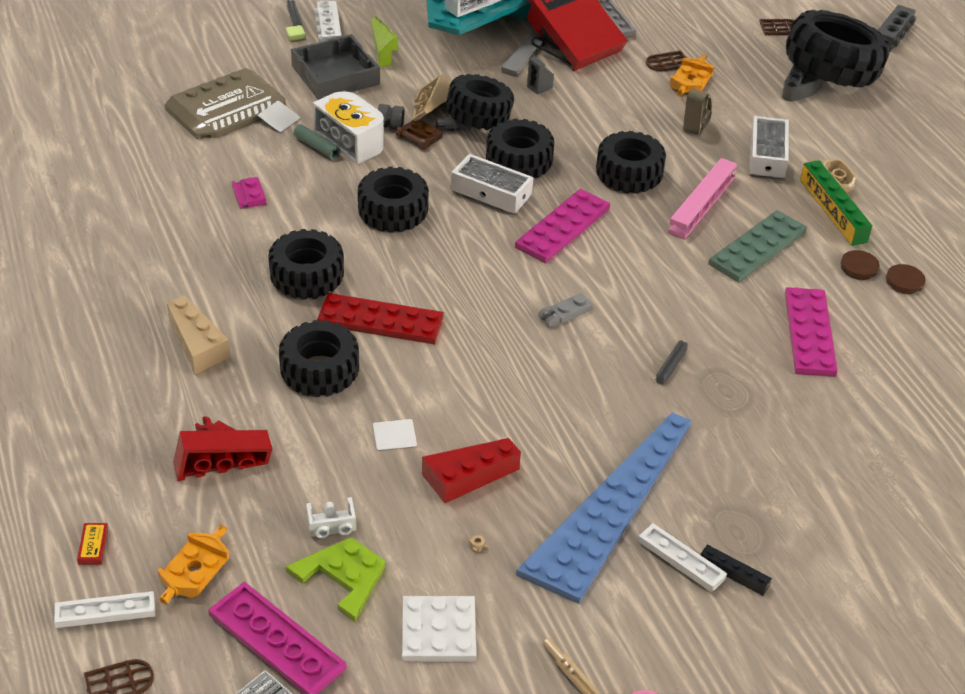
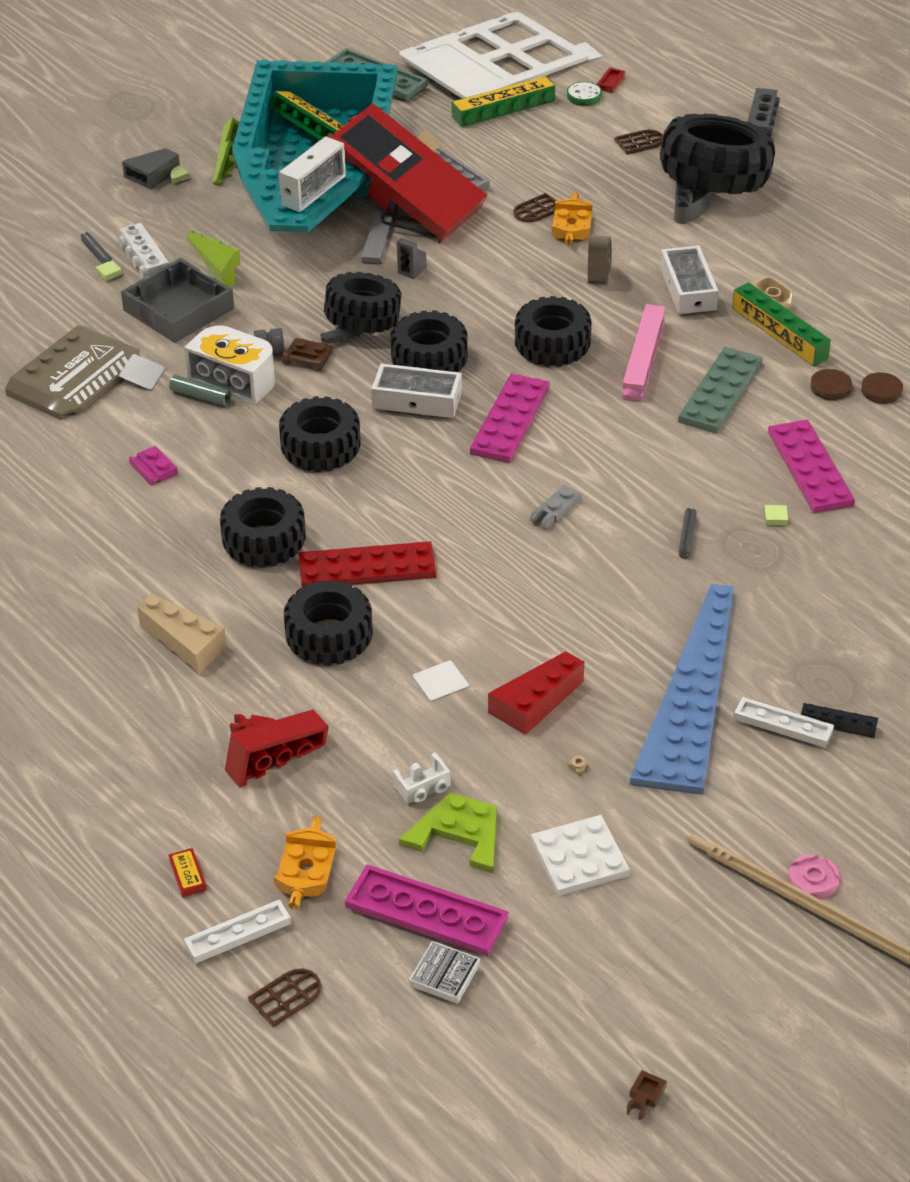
camera: 15 degrees left, 0 degrees up
(431, 96) = (303, 309): tan wedge -> none
(759, 366) = (776, 515): none -> yellowish green tile

